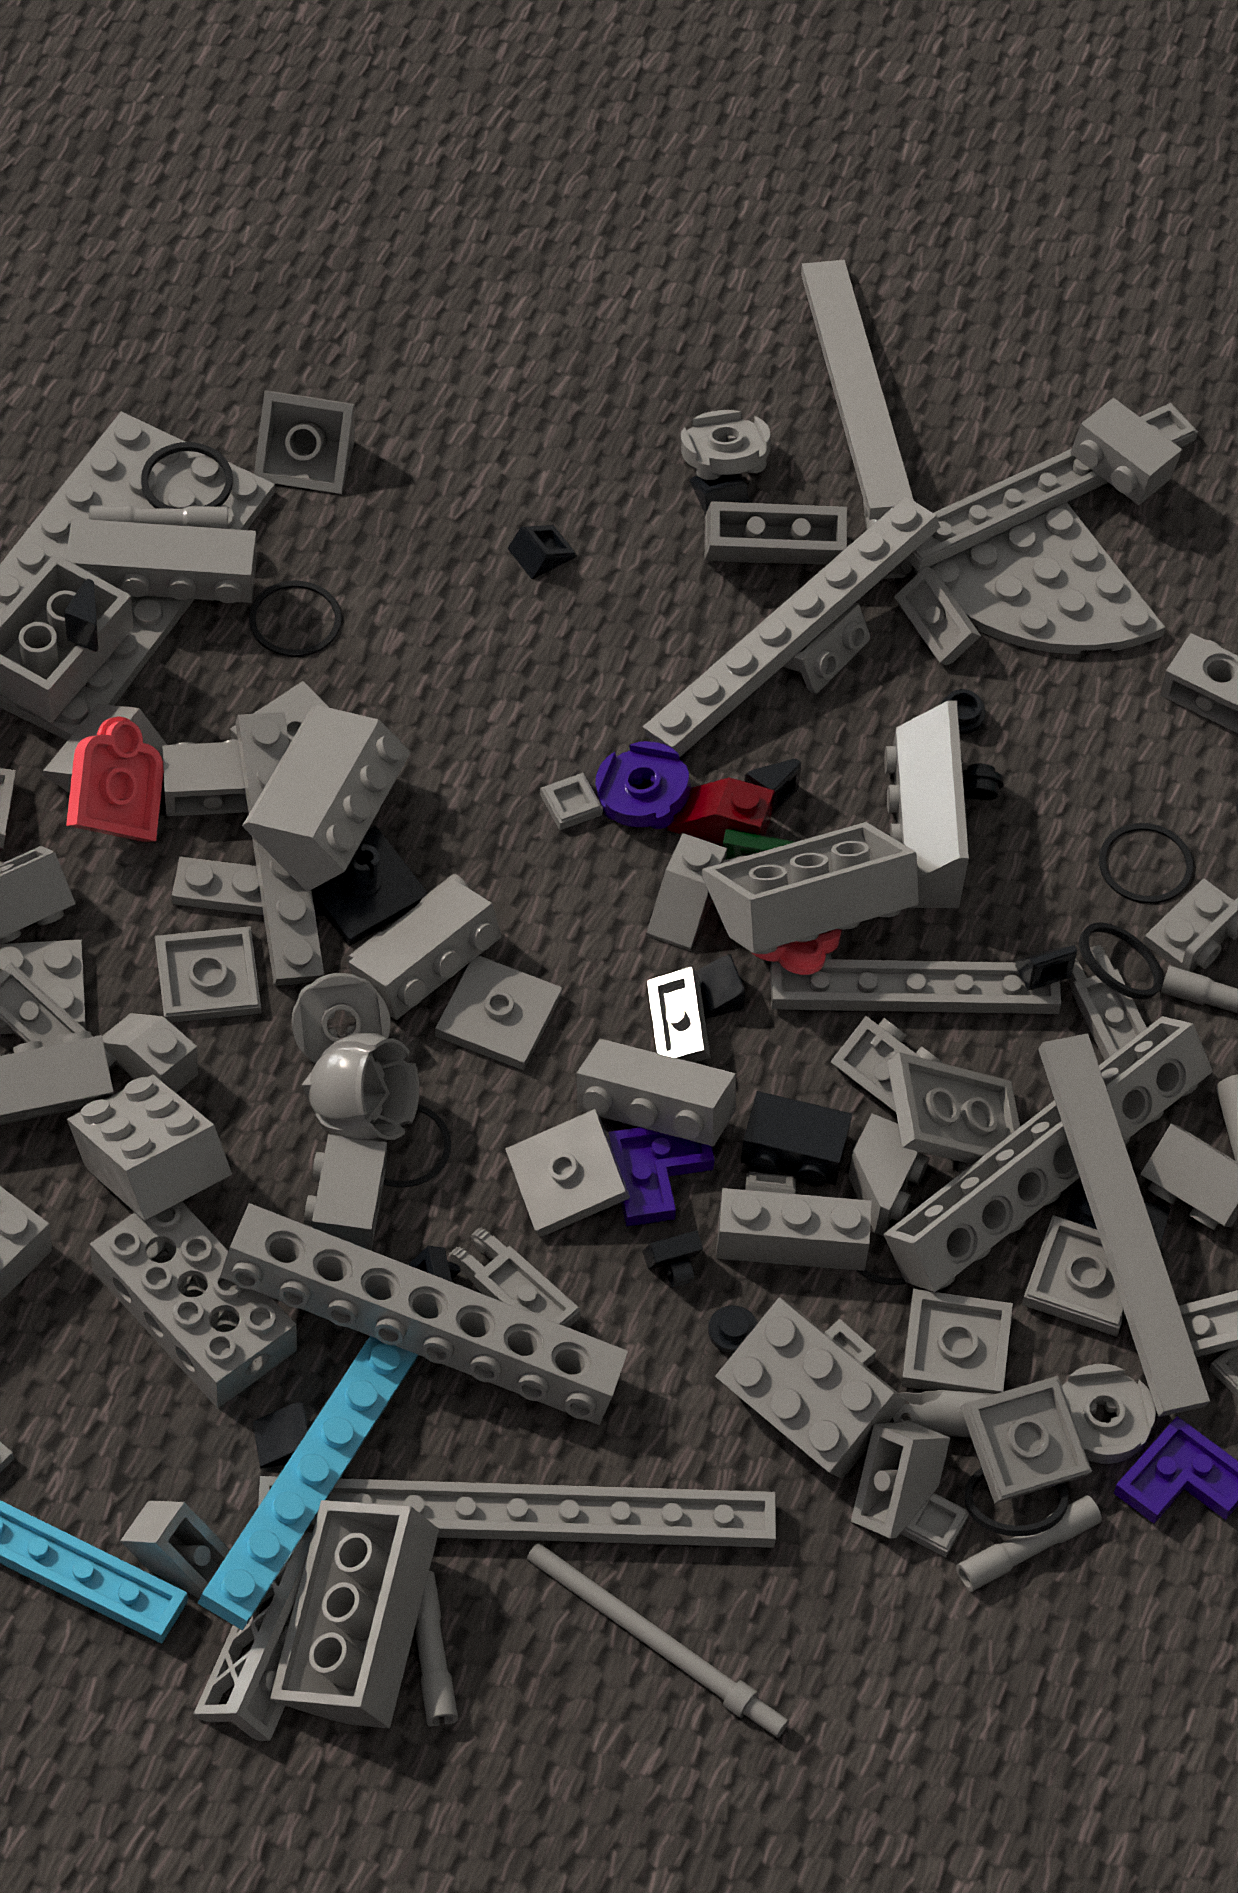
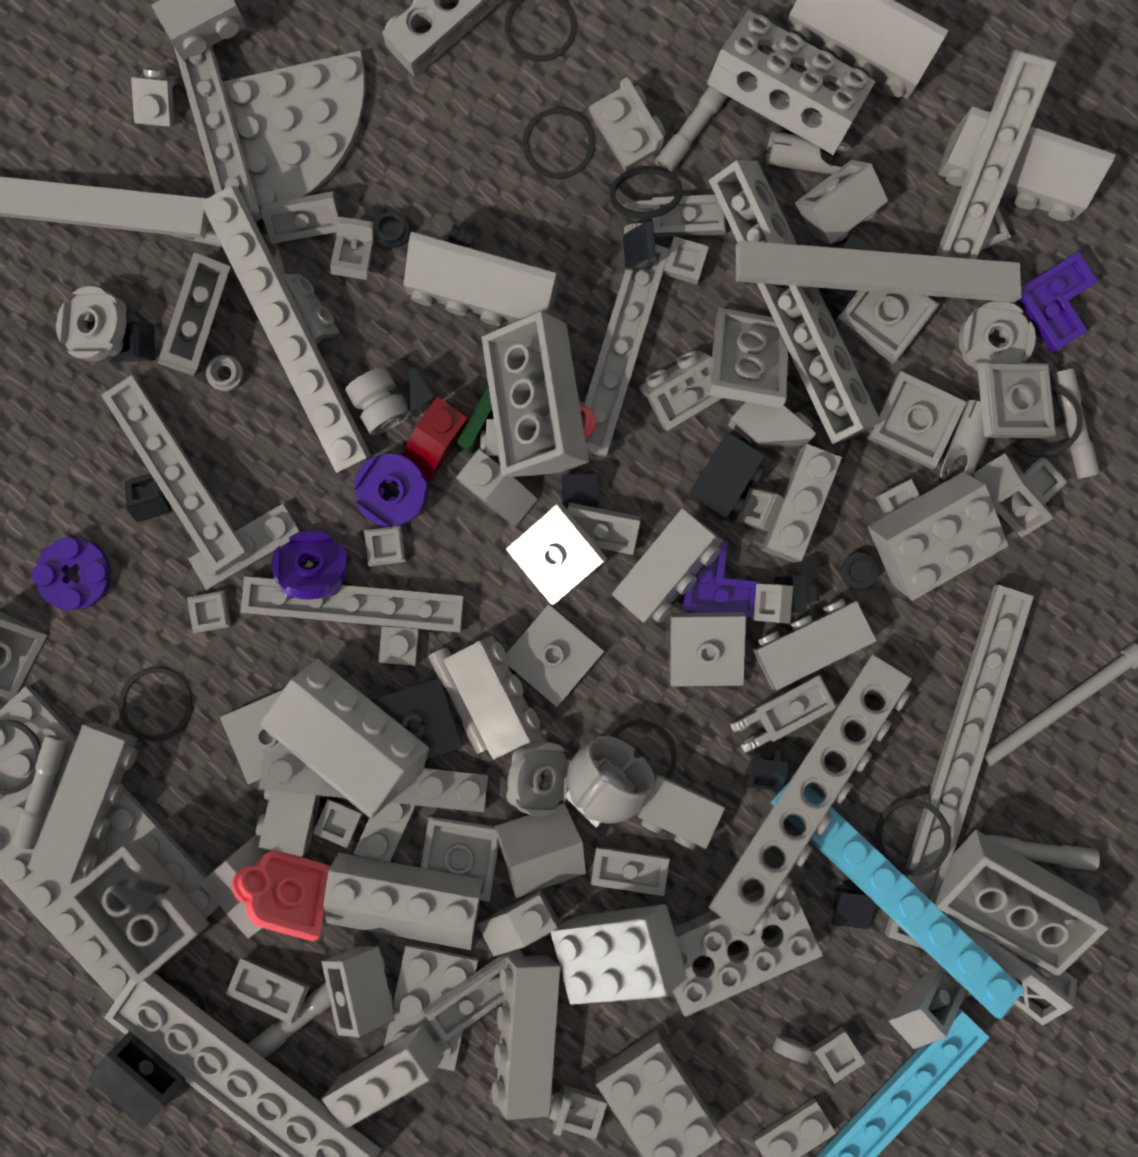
camera: 70 degrees left, 30 degrees up
(76, 1403) = (792, 1049): none -> light grey tile
(82, 1463) = (838, 1055): none -> light grey plate
(136, 917) = (402, 900): none -> light grey slope
(213, 831) = (338, 822): none -> light grey plate
(246, 1053) = (541, 850): none -> light grey slope
(252, 1160) = (630, 870): none -> light grey plate
(402, 1498) = (947, 836): none -> black piece
(421, 477) = (51, 574): none -> dark purple plate
(425, 643) = (209, 612): none -> light grey tile
(453, 845) = (399, 645): none -> light grey plate
(488, 784) = (358, 605): none -> light grey plate
(503, 715) = (313, 583): none -> dark purple plate
(518, 660) = (259, 538): none -> light grey plate
(578, 563) = (175, 475): none -> light grey plate
(617, 1292) = (813, 643): none -> light grey brick
(628, 975) = (556, 553): none -> plate
(653, 1222) = (773, 603): none -> light grey plate
(720, 577) = (214, 368): none -> light grey plate
(747, 741) = (376, 397): none -> light grey wheel
(921, 677) = (352, 248): none -> light grey bracket
(1017, 439) = (153, 97): none -> light grey bracket
(1052, 1023) = (685, 260): none -> light grey plate

